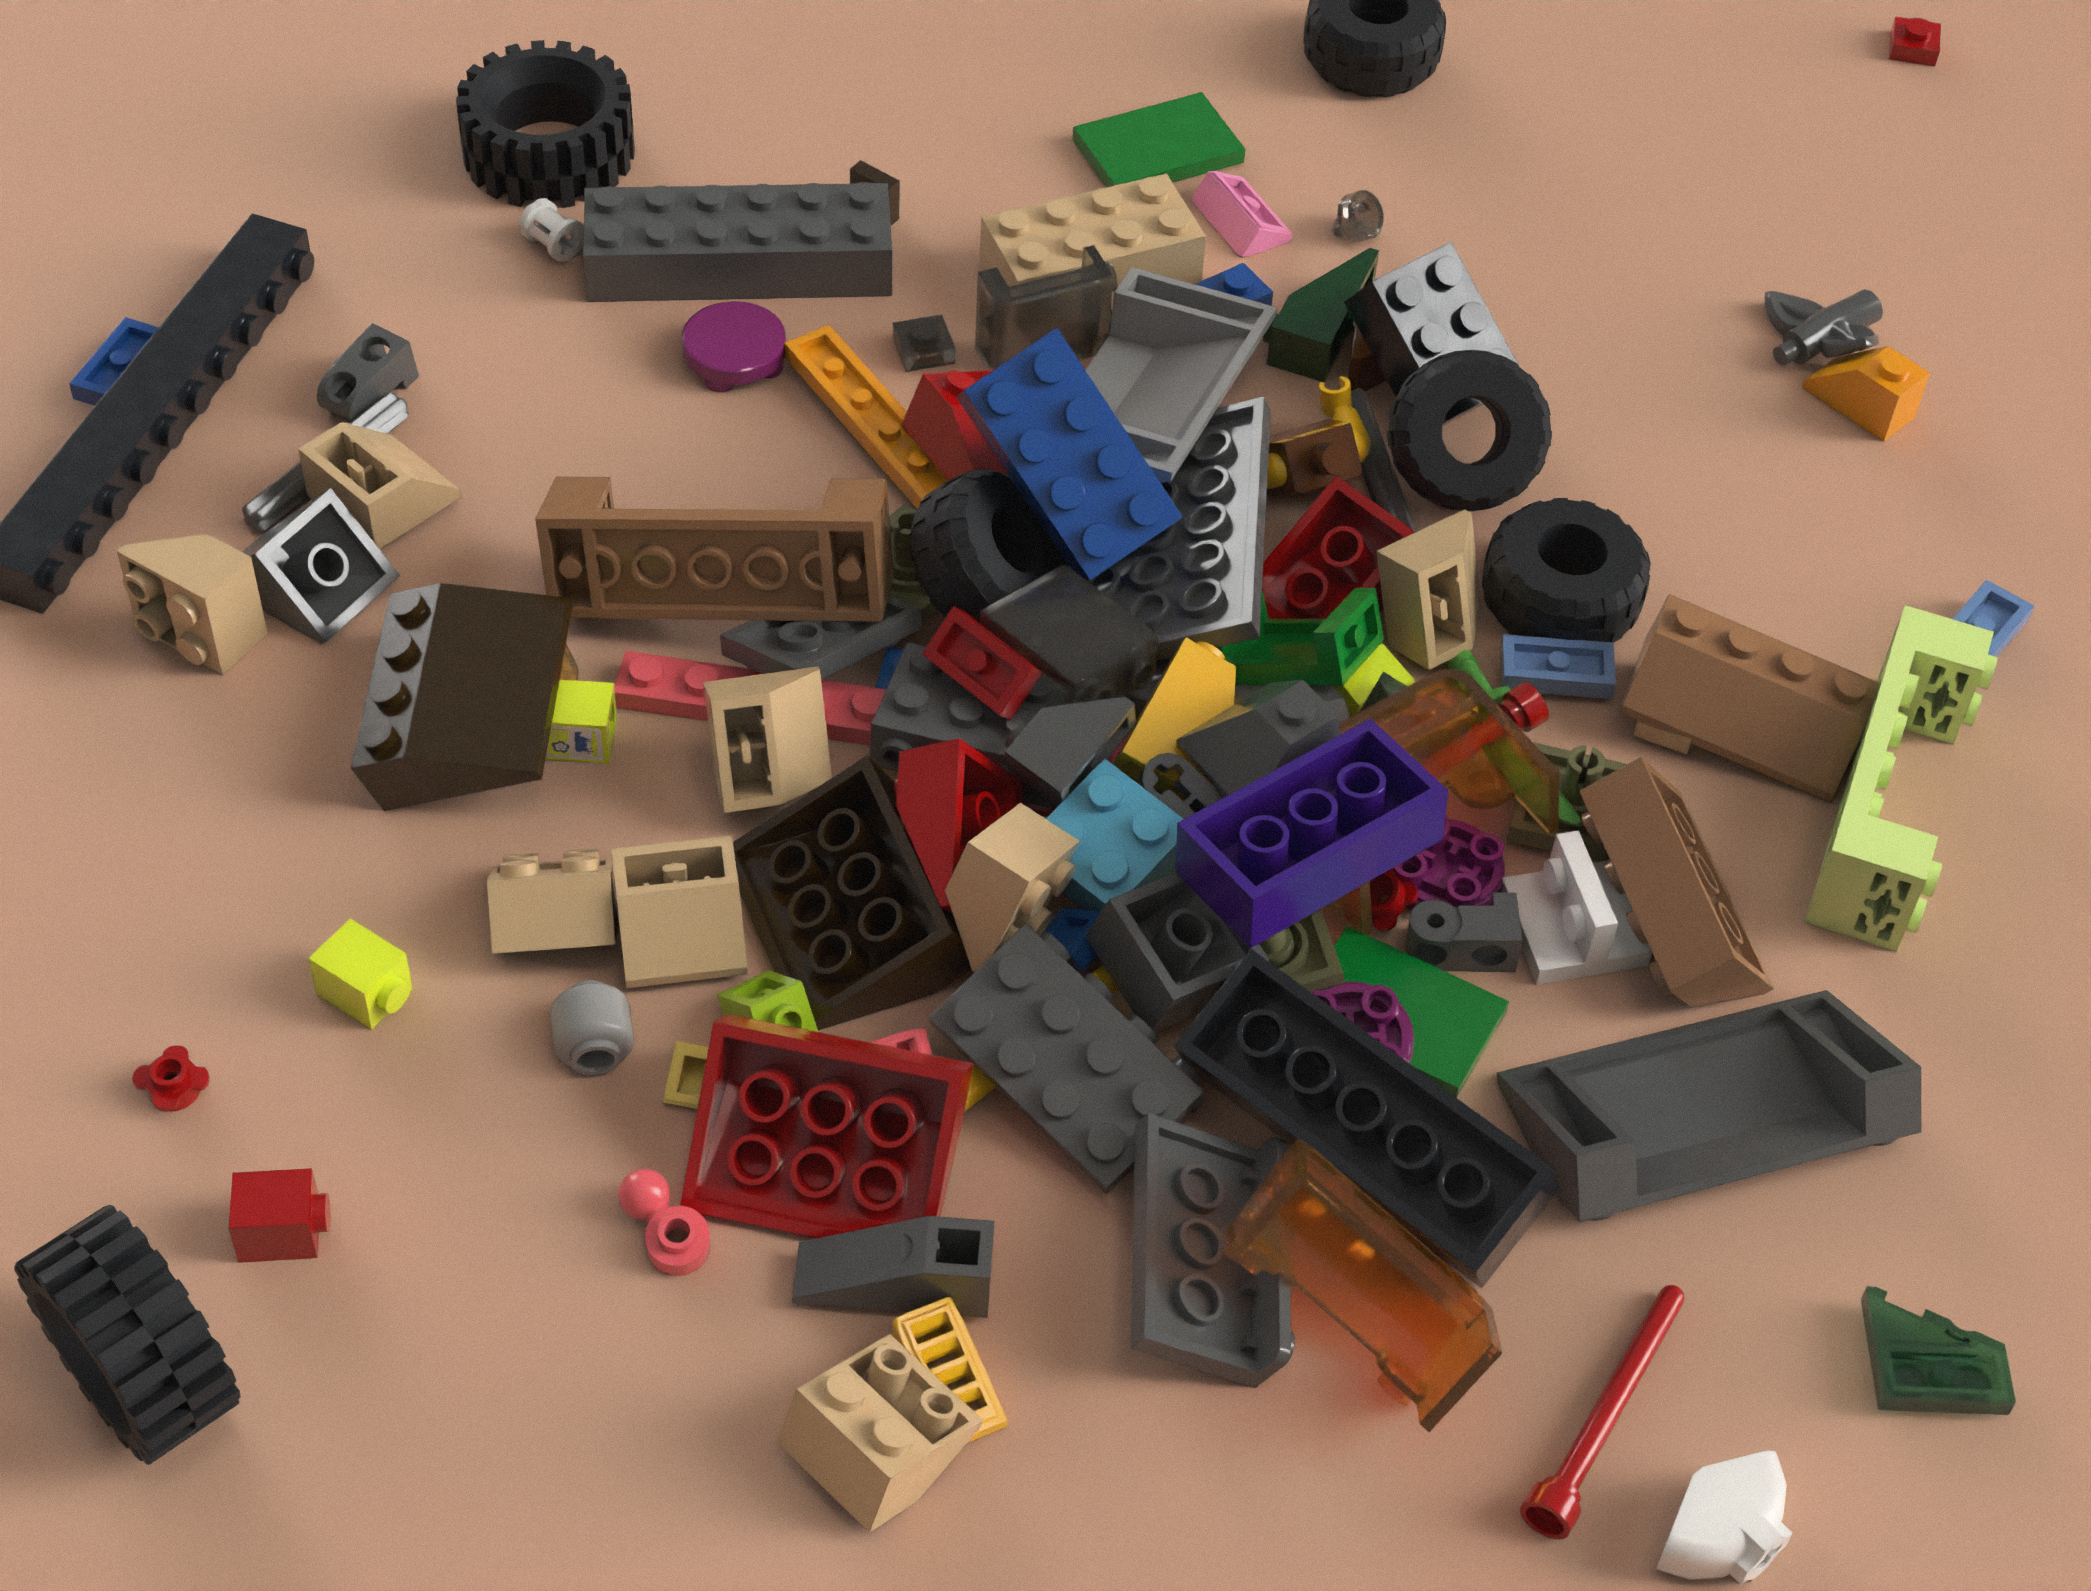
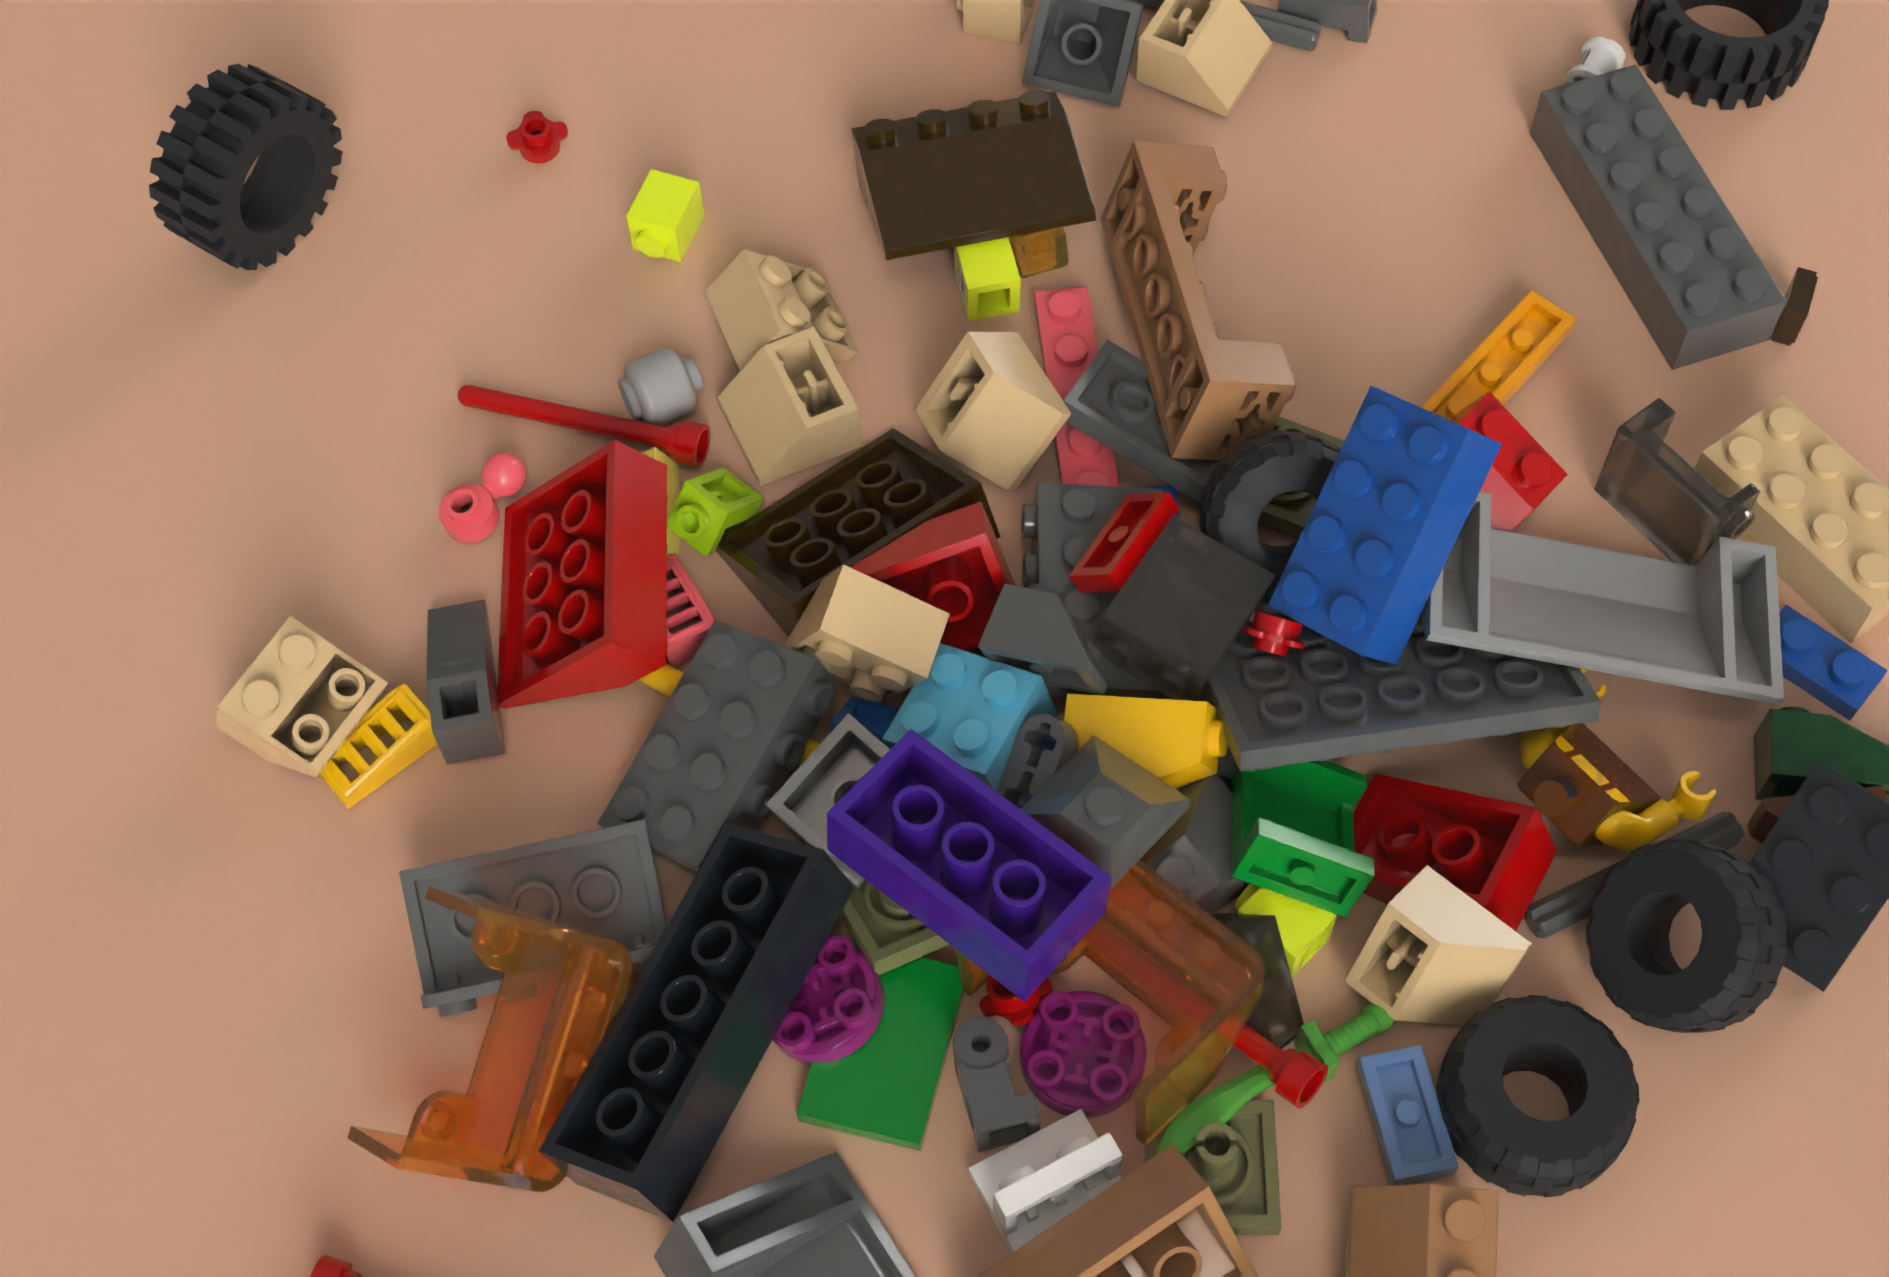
camera: 80 degrees right, 10 degrees up
(277, 1215) = (421, 239): red brick -> none
(672, 1020) = (683, 441): none -> red piece
(734, 344) = (1517, 253): magenta tile -> none
(924, 343) = (1605, 408): clear smoke plate -> none
(1120, 582) = (1274, 633): none -> red plate

